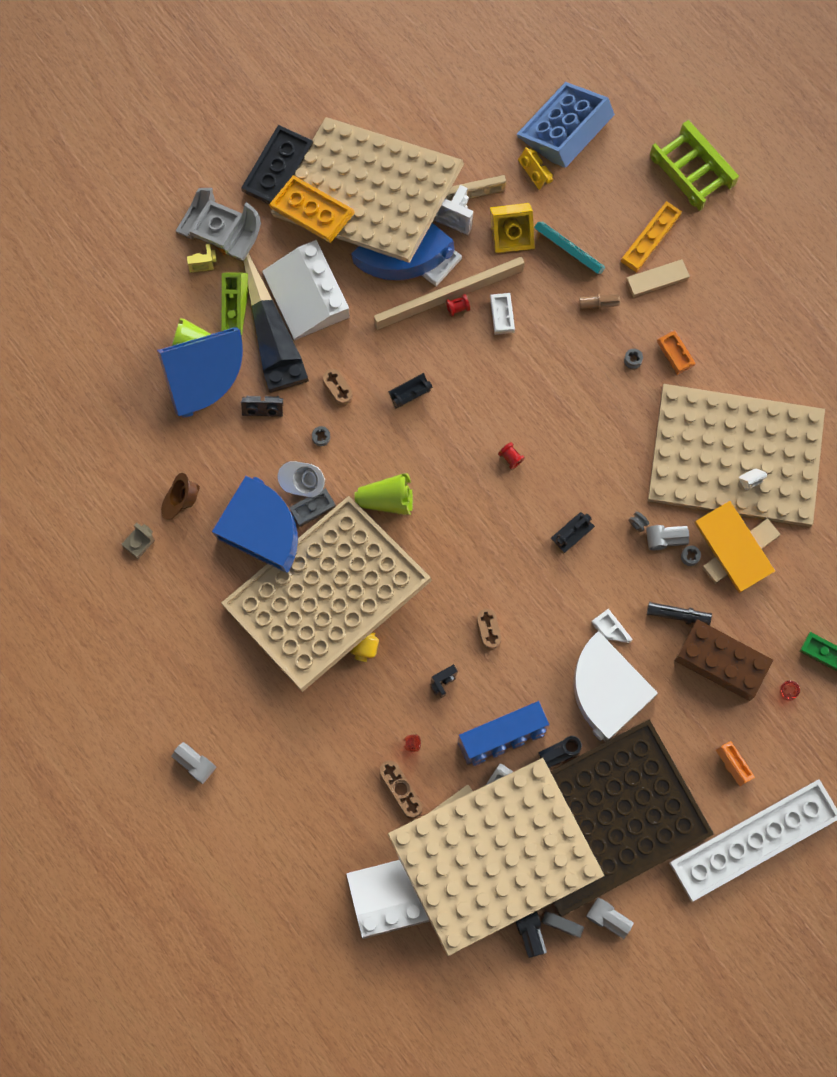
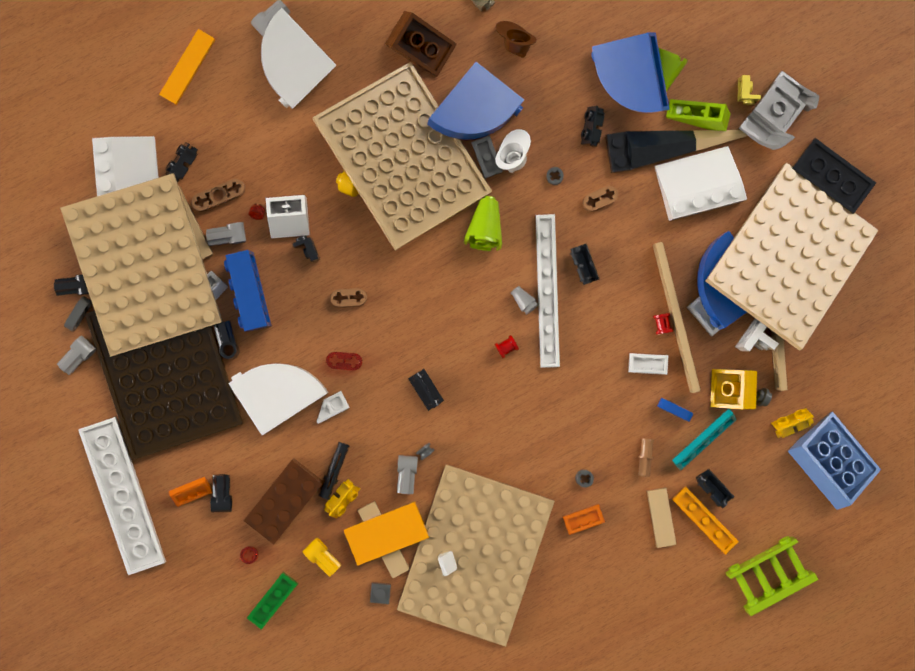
camera: 105 degrees right, 15 degrees up
(198, 596) = (420, 43): none -> reddish brown slope
(238, 728) = (292, 59): none -> white brick
(261, 848) = (187, 67): none -> light orange tile
(311, 209) = (779, 199): light orange tile -> none
(360, 834) = (184, 154): none -> black hinge
(412, 706) = (287, 216): none -> white slope
(442, 767) = (231, 233): none -> light grey piece
(444, 425) = (547, 291): none -> white tile
(459, 445) = (524, 300): none -> light grey cone
(515, 197) = (763, 397): none -> dark grey plate
(544, 280) = (675, 409): none -> blue beam
(563, 622) = (344, 355): none -> clear red beam
(616, 230) = (715, 487): none -> black hinge
(685, 552) = (384, 497): dark grey bush -> none
(701, 596) = (337, 506): none -> yellow hinge
(734, 729) = (221, 499): none -> black piece
(772, 614) = (319, 554): none -> yellow piece
(798, 545) = (380, 593): none -> dark grey plate

